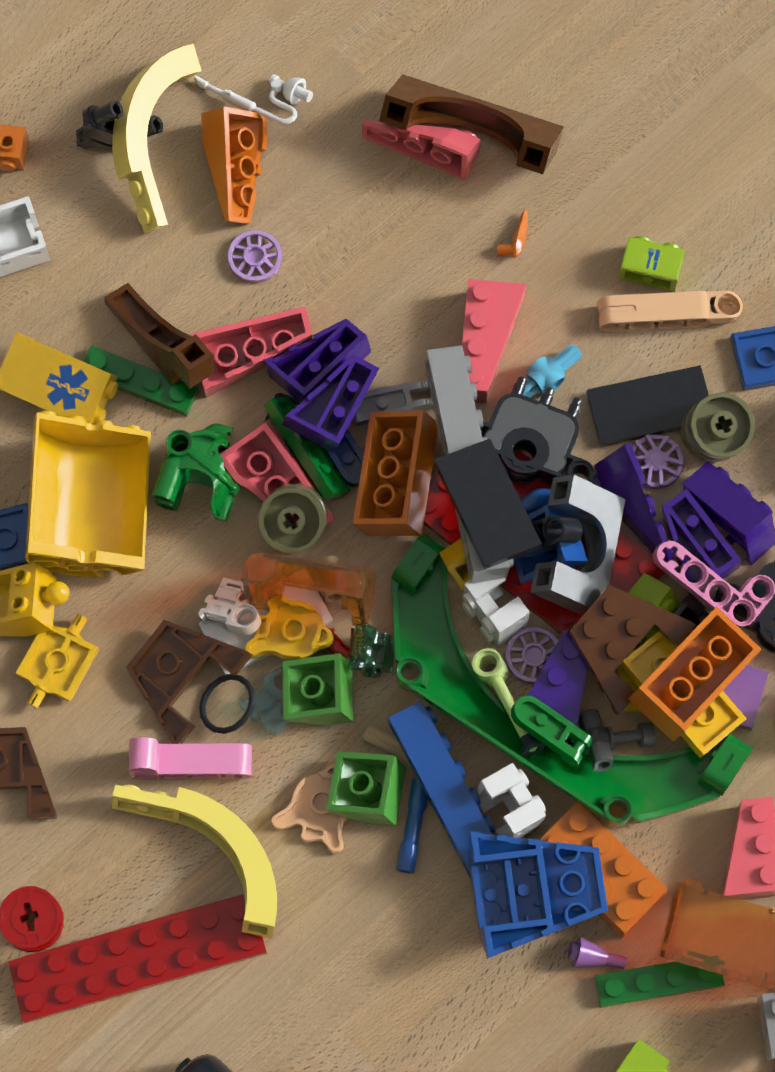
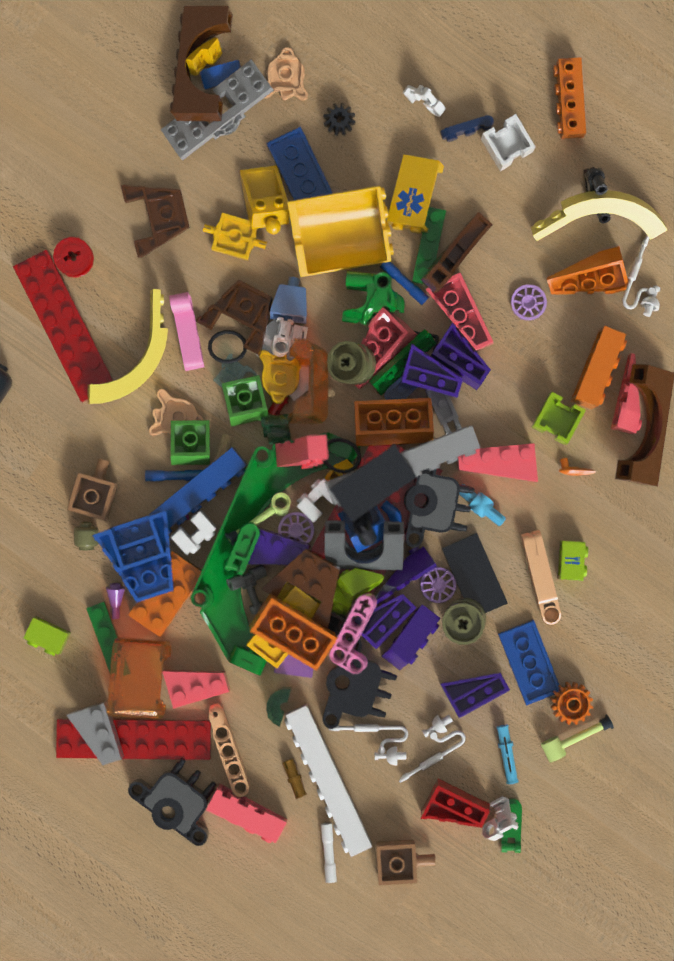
camera: 80 degrees right, 15 degrees up
(179, 593) = (290, 302): none -> medium blue torso
(200, 414) = (414, 291): none -> blue piece
(374, 172) = (598, 367): none -> orange brick
(418, 606) = (304, 452): none -> coral wedge
(418, 955) = (93, 494): none -> medium nougat brick
(438, 242) = (558, 418): none -> lime piece
(449, 570) = (355, 448): none -> black tyre
(485, 983) = (84, 536): none -> olive head
(633, 567) = (358, 582): none -> lime slope

